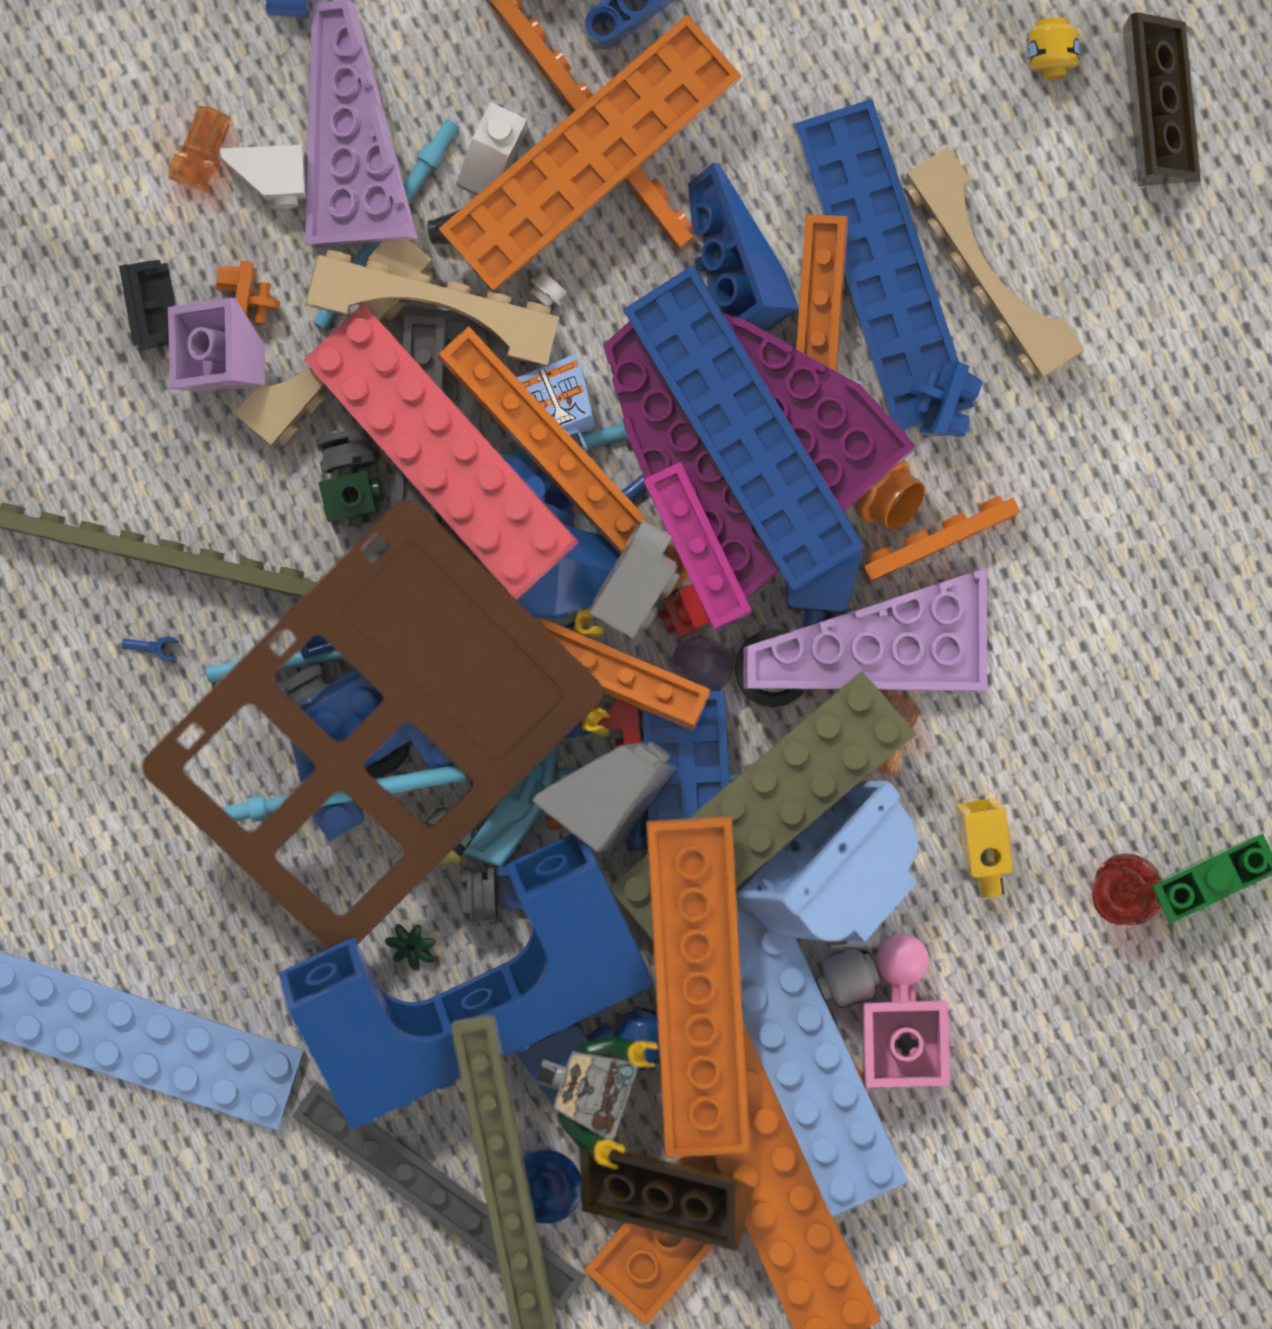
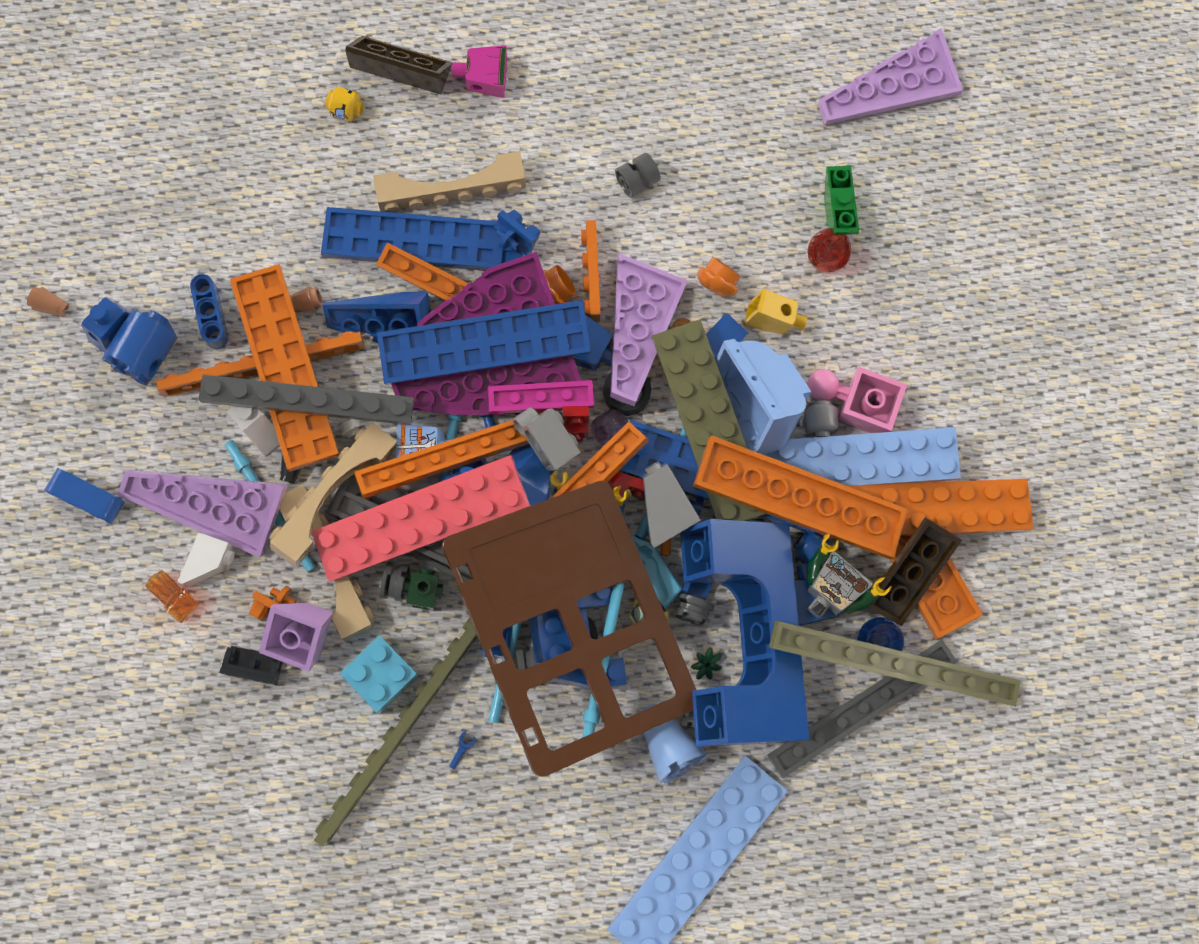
camera: 75 degrees left, 10 degrees down
(207, 487) = (379, 675): none -> medium azure brick
(265, 941) = (672, 750): none -> light blue cone
(550, 210) = (306, 399): none -> dark grey plate
(715, 135) = (307, 299): none -> nougat cone
(915, 779) = (725, 329): none -> blue panel
(1010, 737) = (719, 278): none -> orange piece
(1127, 545) = (638, 174): none -> dark grey wheel
(1203, 236) = (484, 70): none -> dark pink torso

